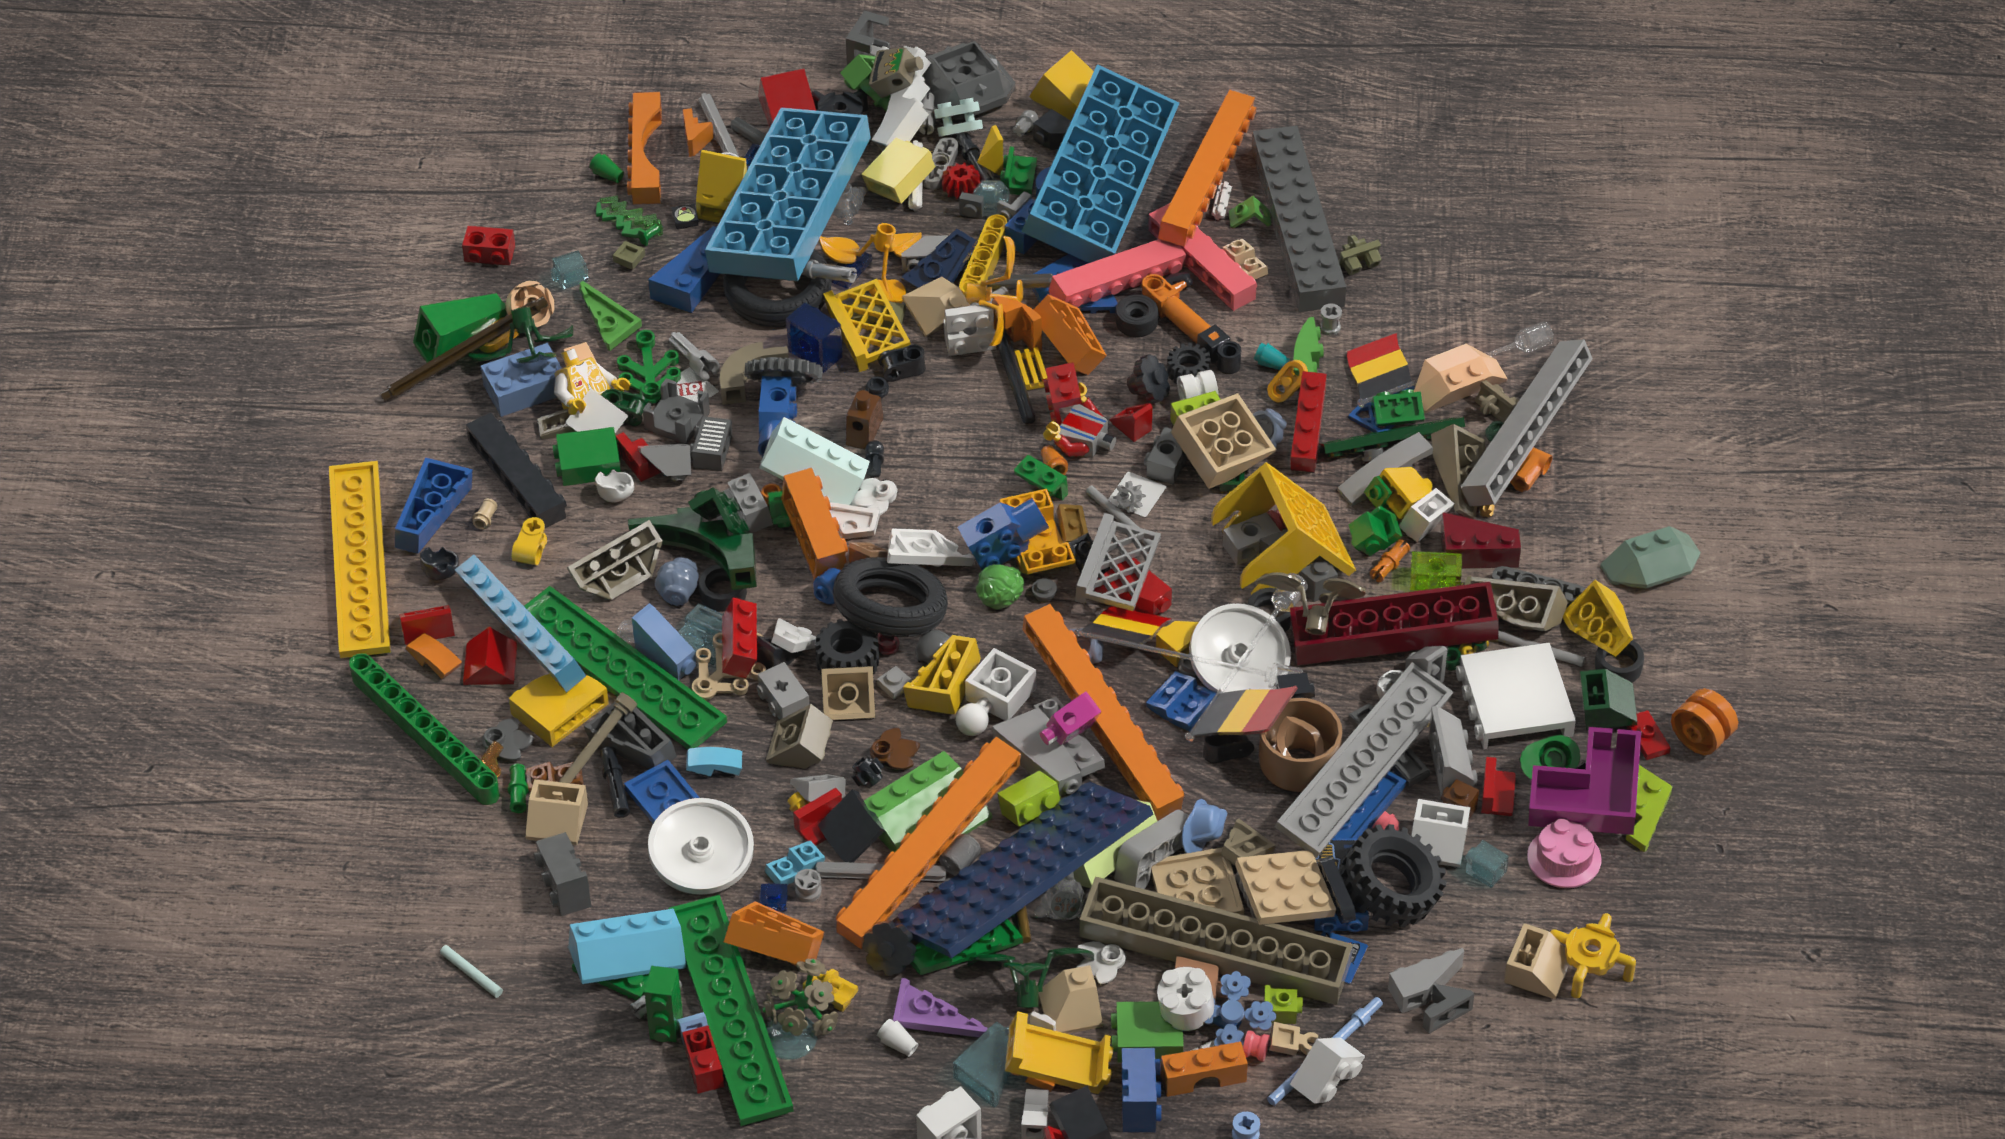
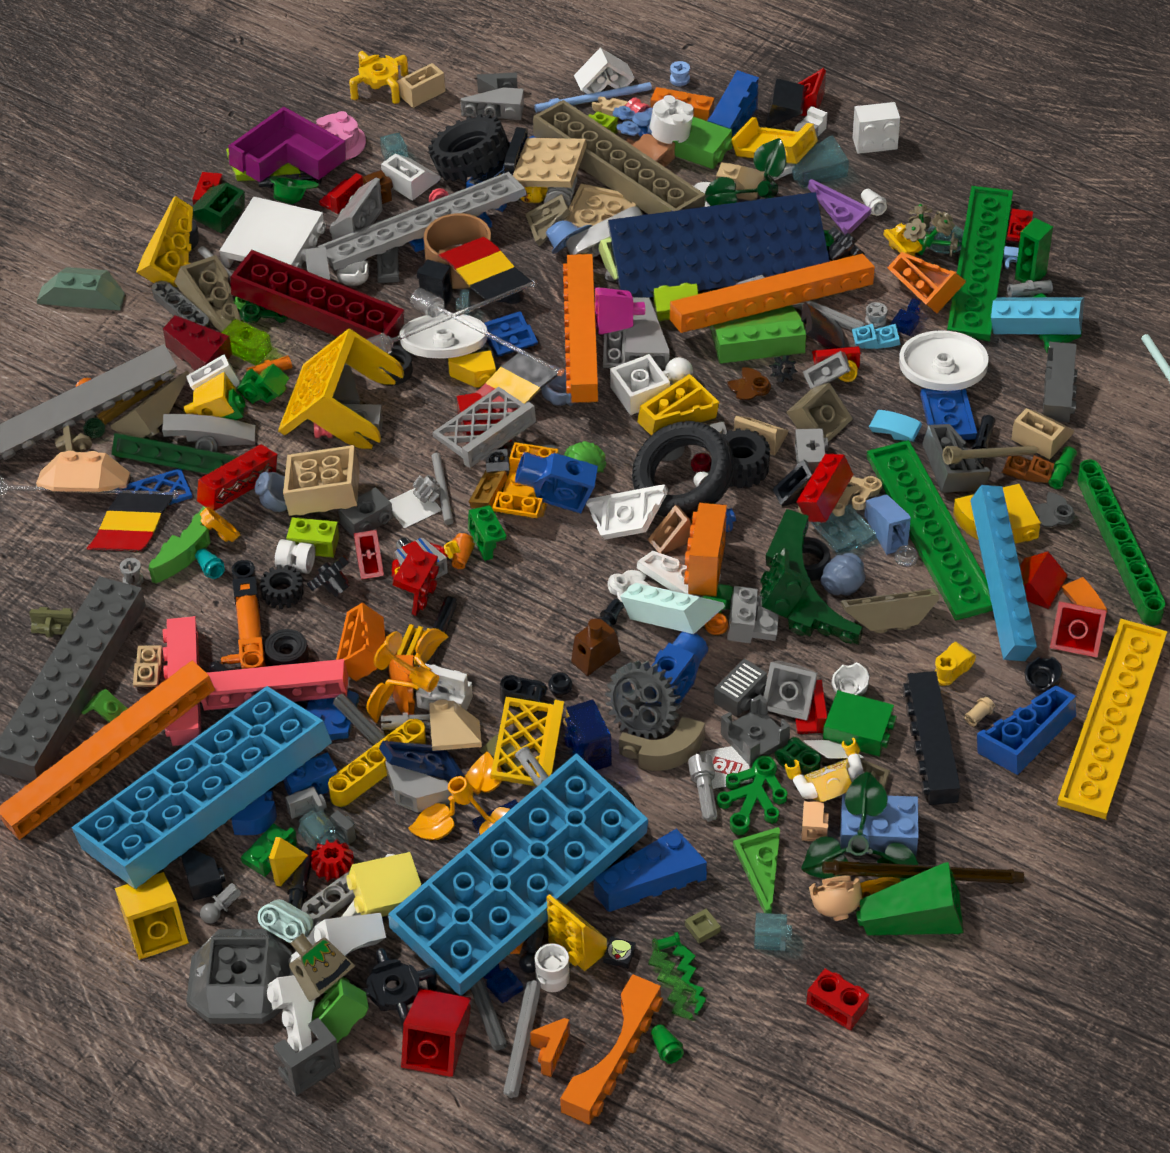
camera: 150 degrees left, 0 degrees up
(490, 757) = (1076, 495): clear orange arm -> none
(792, 637) = (778, 486): white wing -> none
(1318, 615) = (385, 324): dark tan plant -> none
(1397, 408) = (152, 472): green bracket -> none
(1704, 721) = (173, 159): orange wheel -> none

